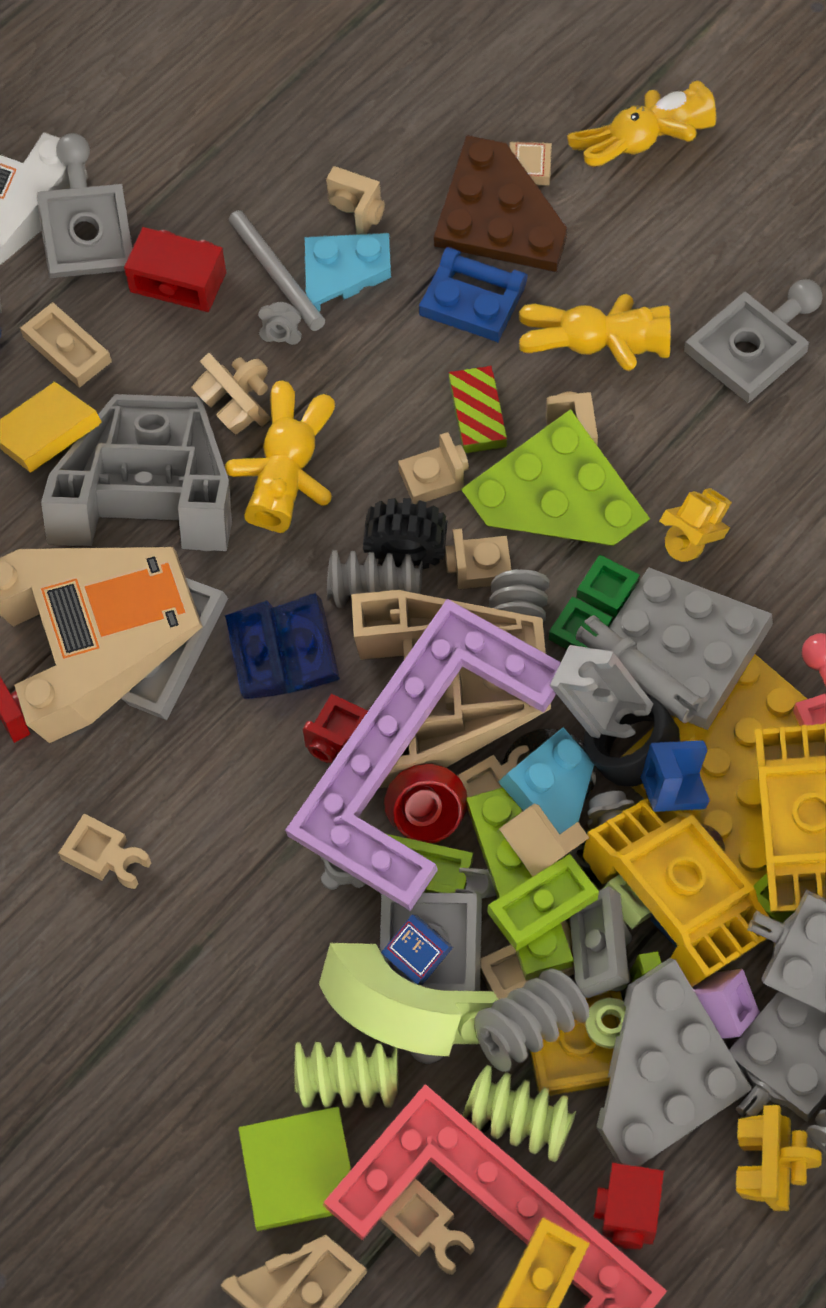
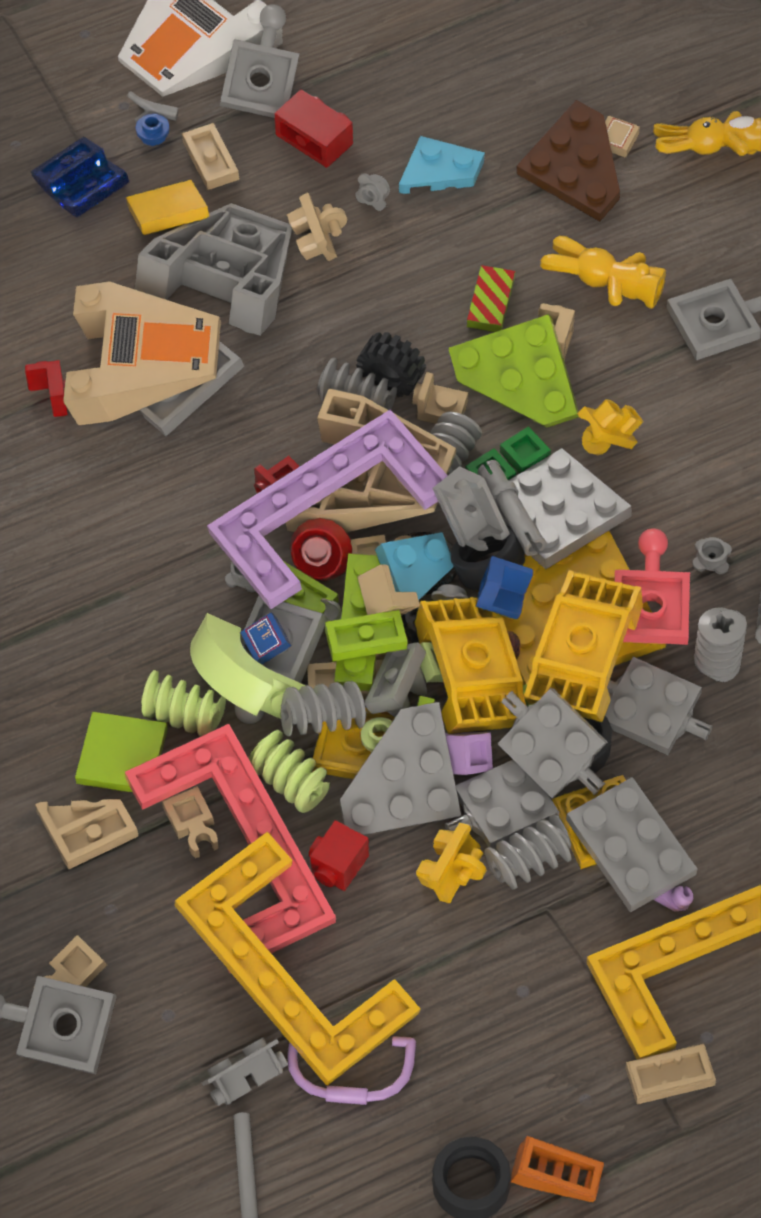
camera: 20 degrees right, 5 degrees down
(98, 848) = (80, 503): tan plate -> none
(277, 270) = (388, 153): light grey bar -> none
(282, 647) = (270, 415): clear blue slope -> none
(287, 451) = (335, 280): yellow animal -> none
(358, 195) = (472, 119): tan bracket -> none
(434, 471) = (437, 332): tan bracket -> none
(470, 306) = (522, 225): blue plate -> none

